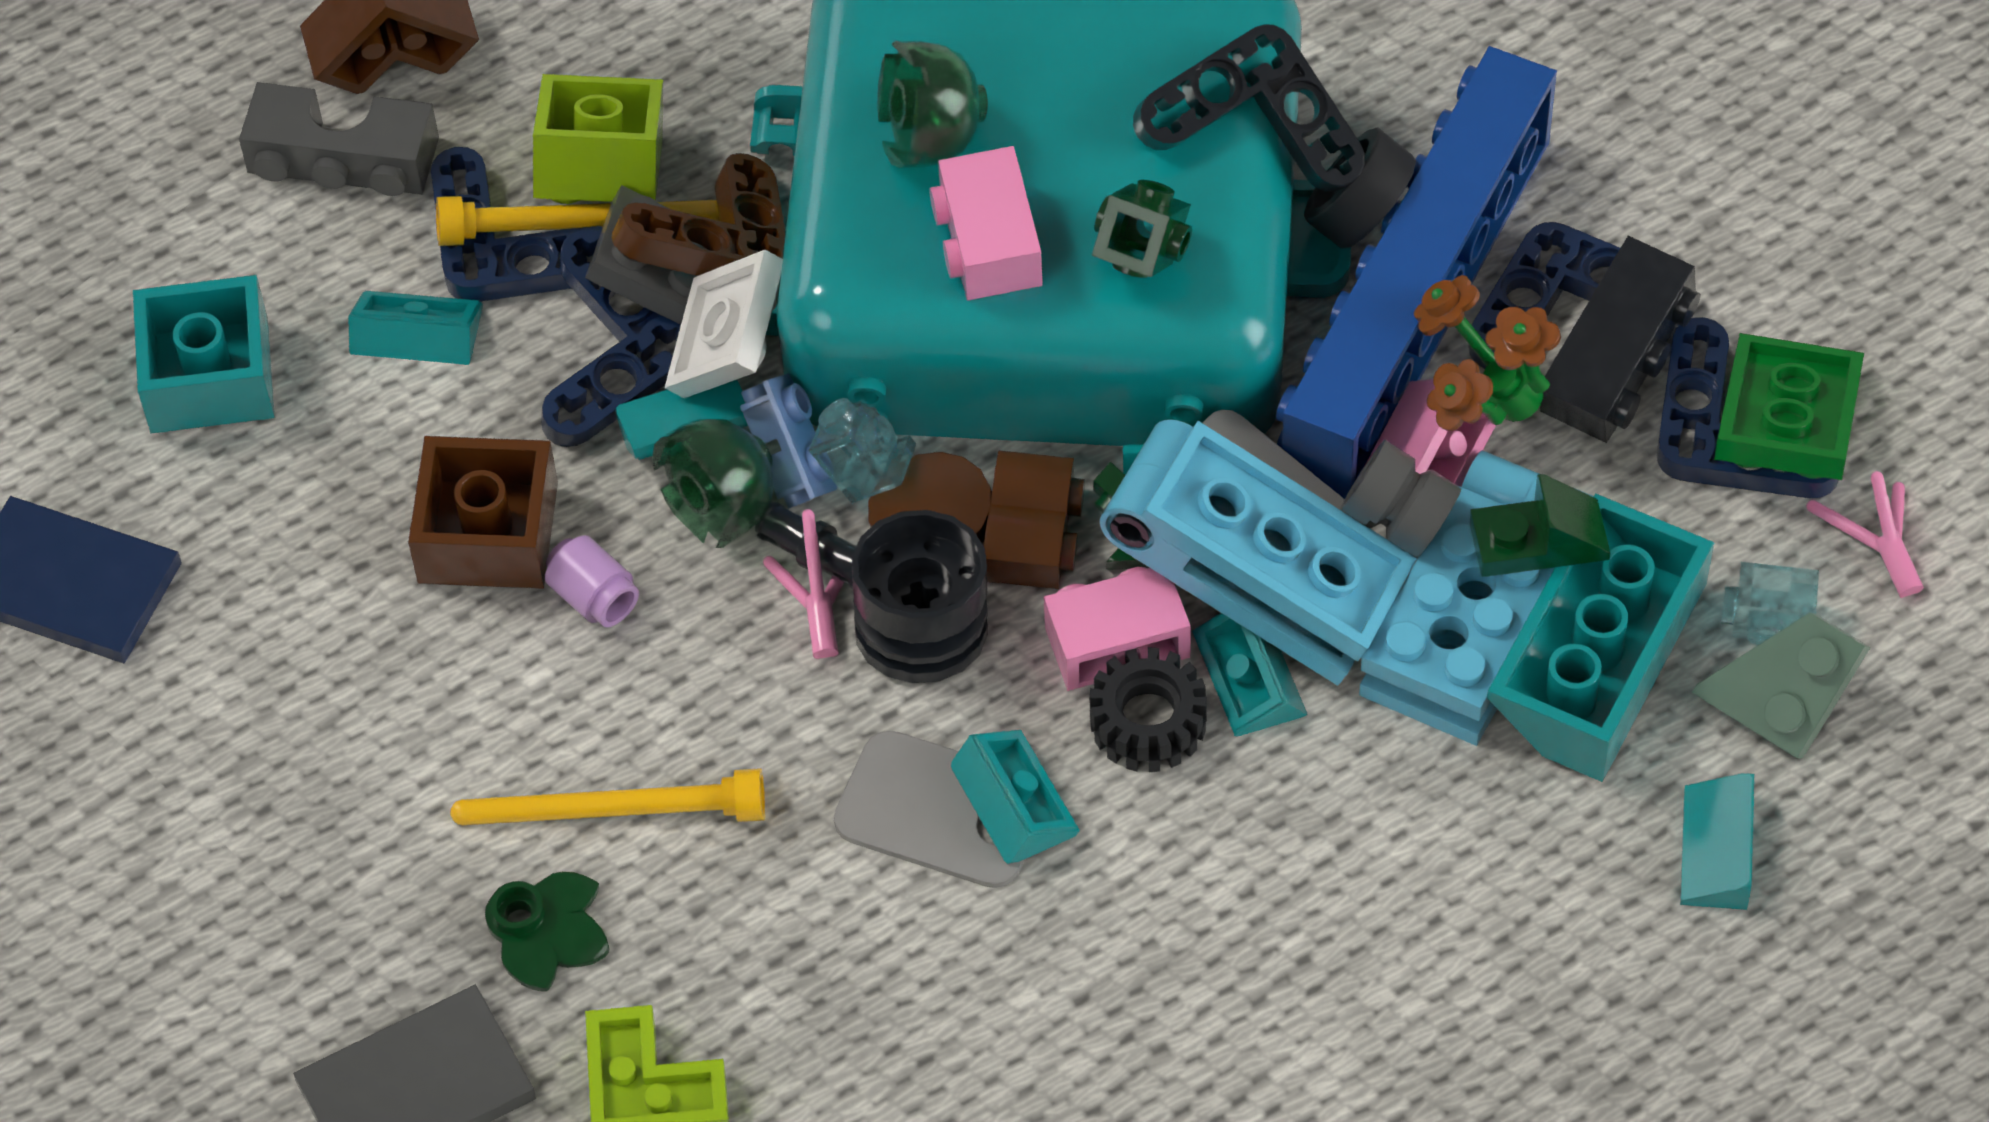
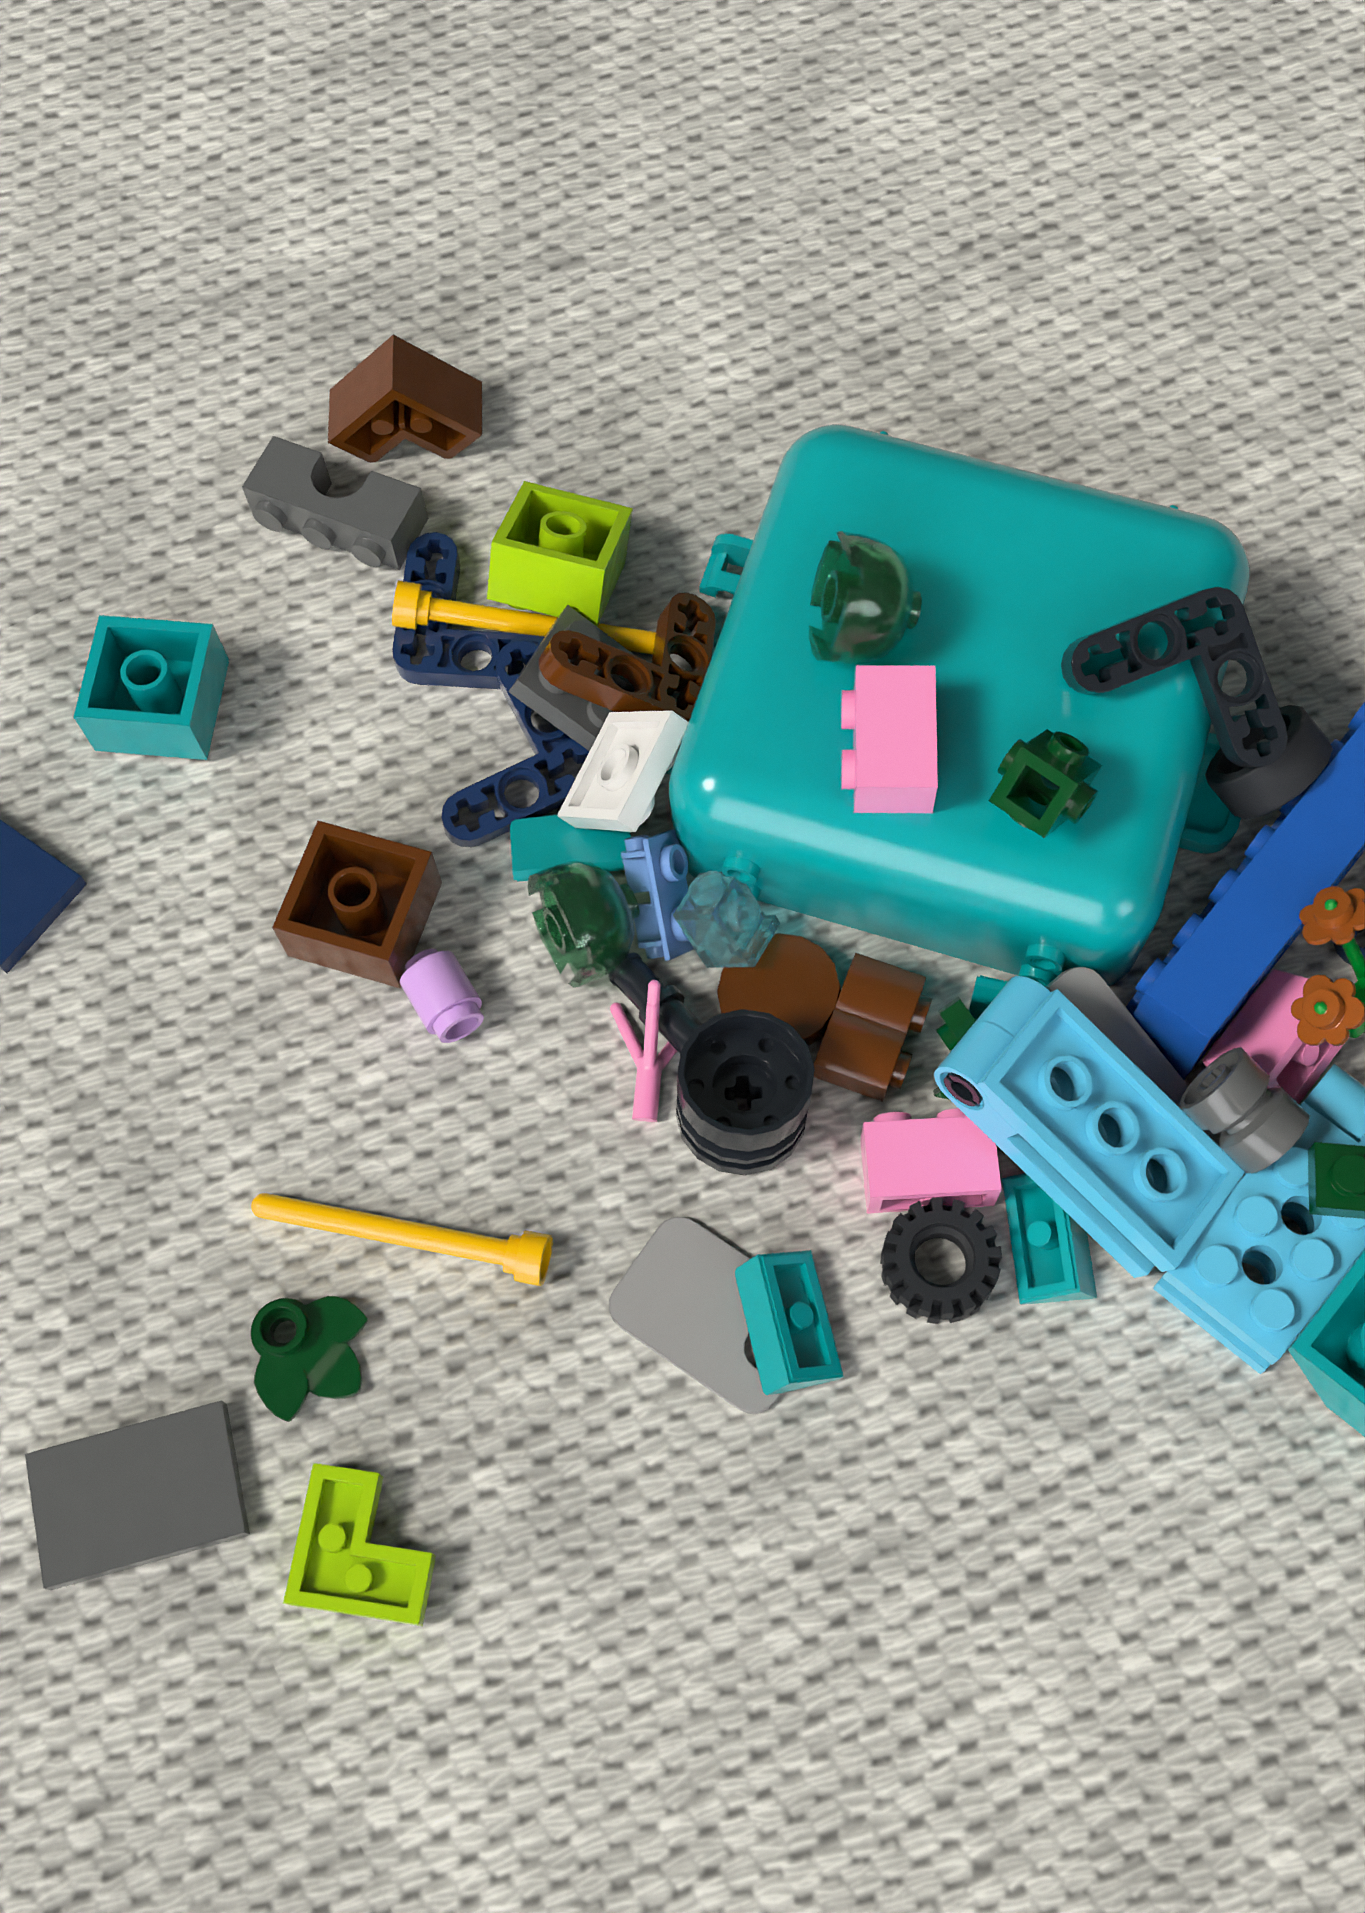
camera: 15 degrees right, 10 degrees up
(414, 327) = (355, 697): teal slope -> none

